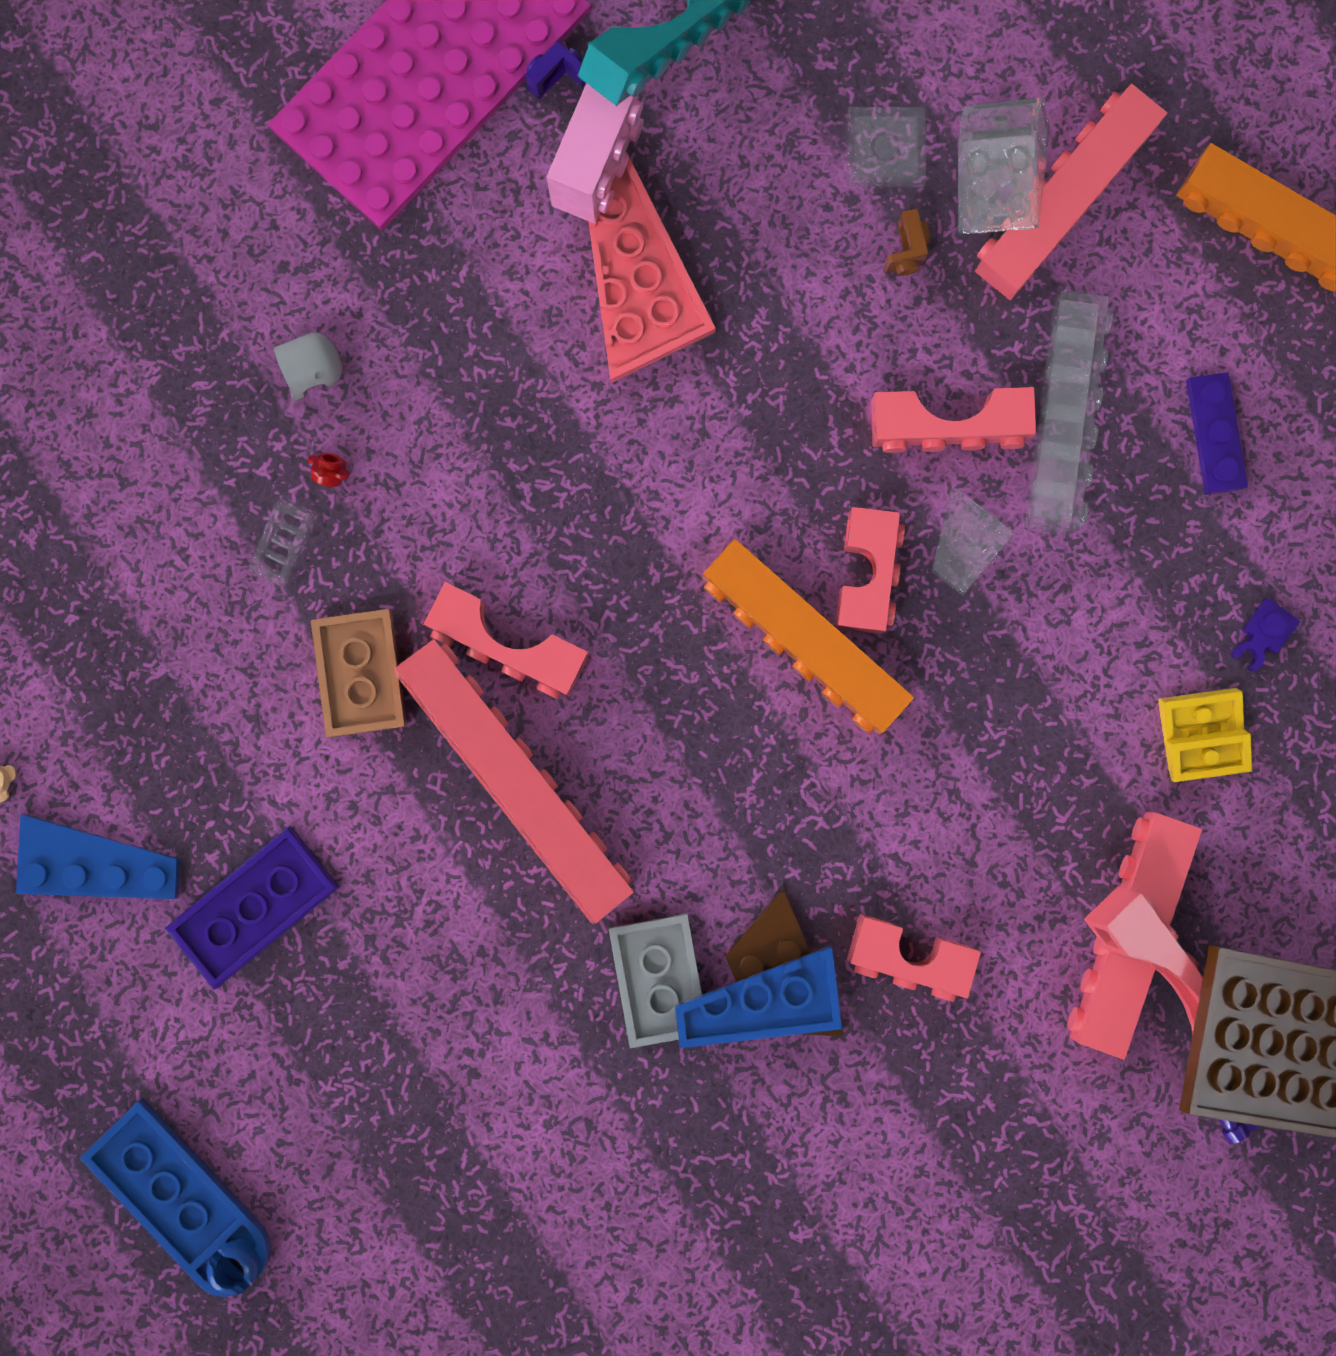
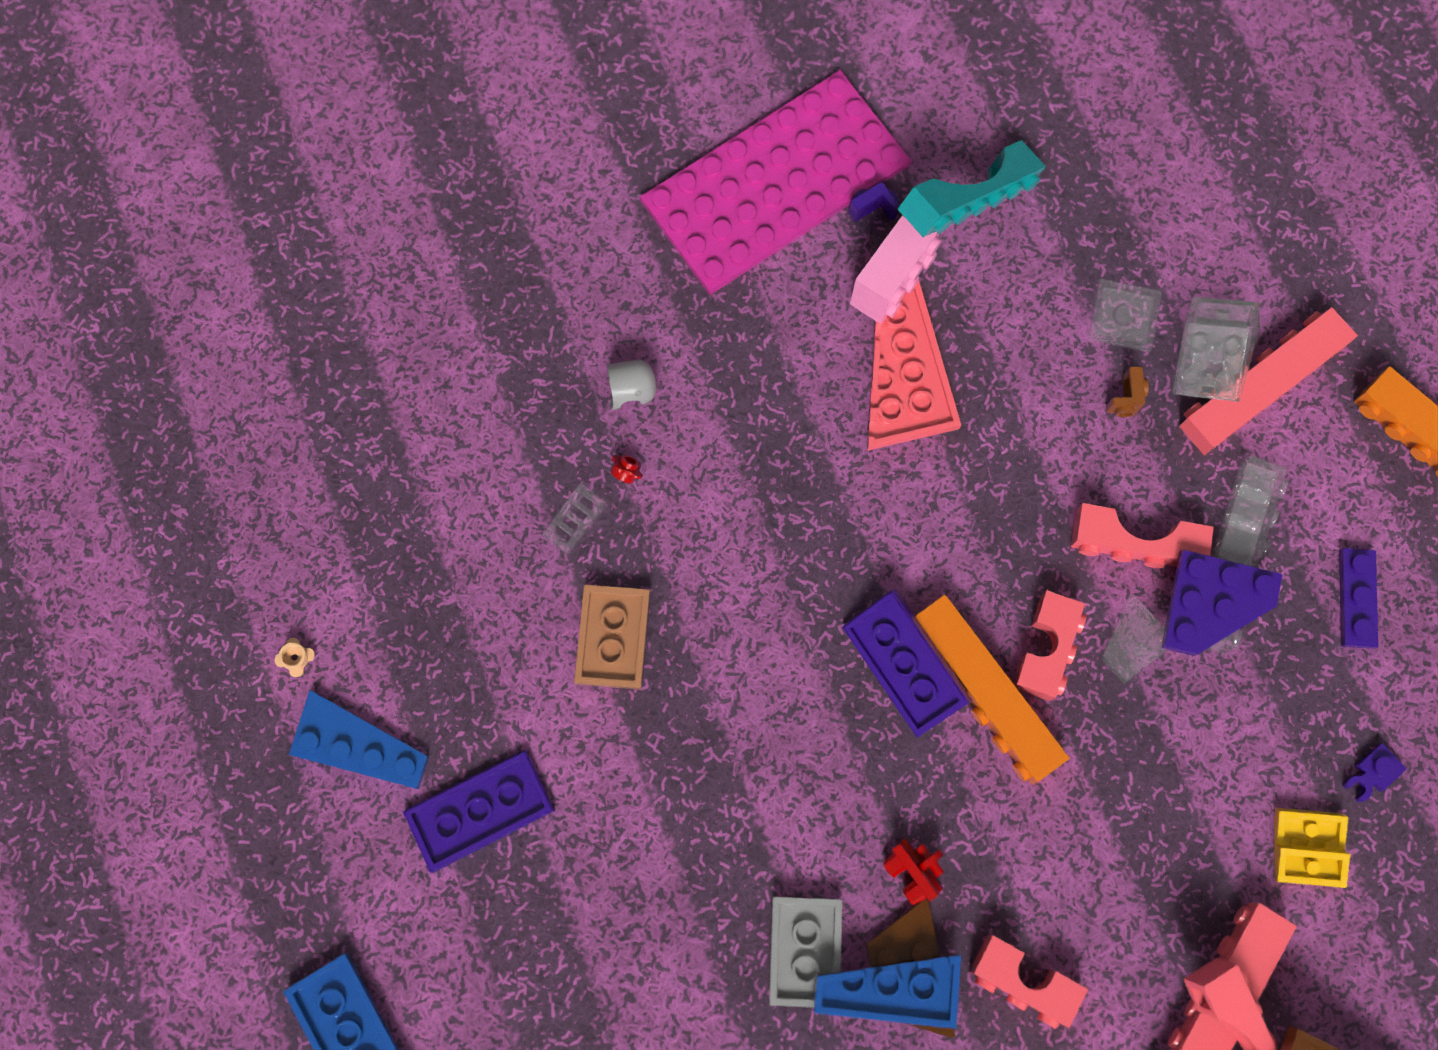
camera: 10 degrees right, 10 degrees down
(461, 619) = (772, 663): coral arch -> none
(513, 780) = (722, 756): coral brick -> none
(706, 627) = (906, 663): none -> dark purple tile
(769, 858) = (924, 882): none -> red hips
(1049, 475) = (1215, 600): none -> dark purple plate

